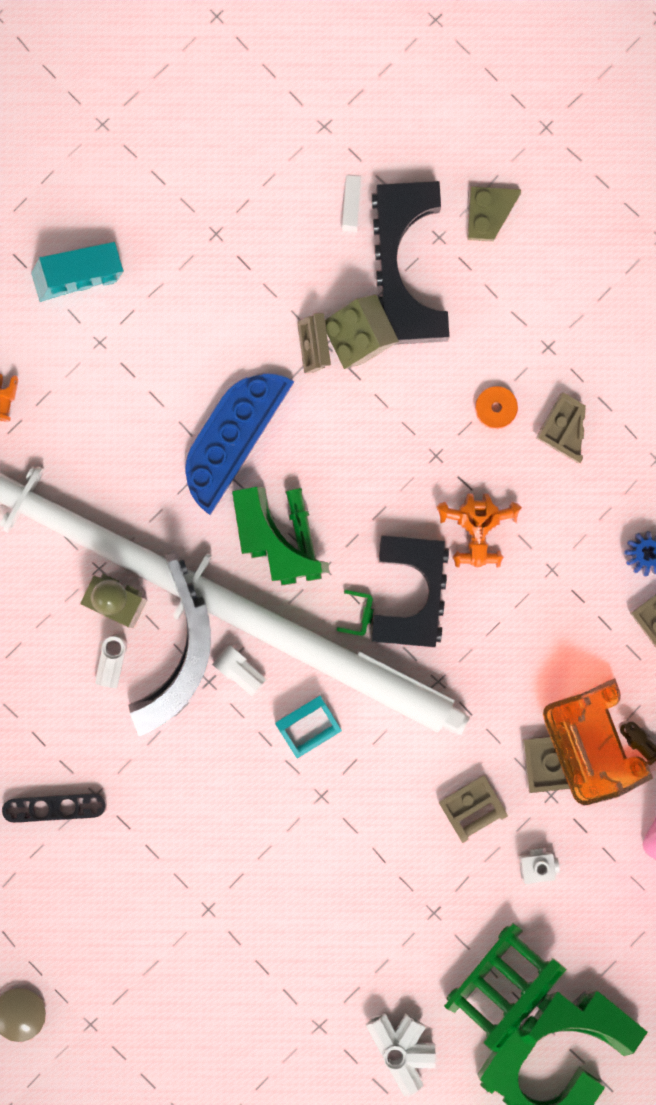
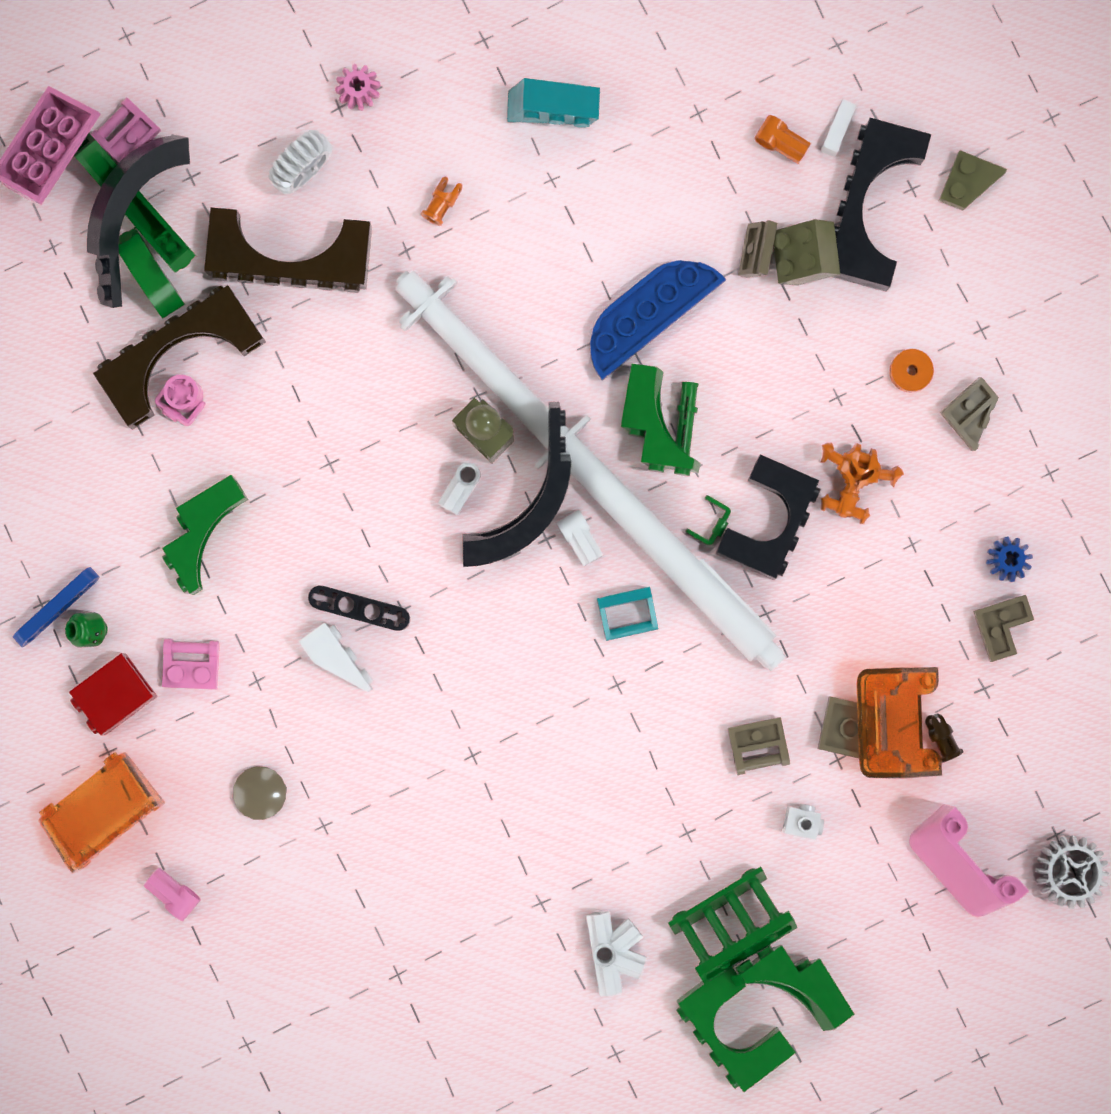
camera: 20 degrees right, 0 degrees up
(41, 861) = (327, 651): none -> white slope
(295, 231) = (776, 136): none -> orange piece

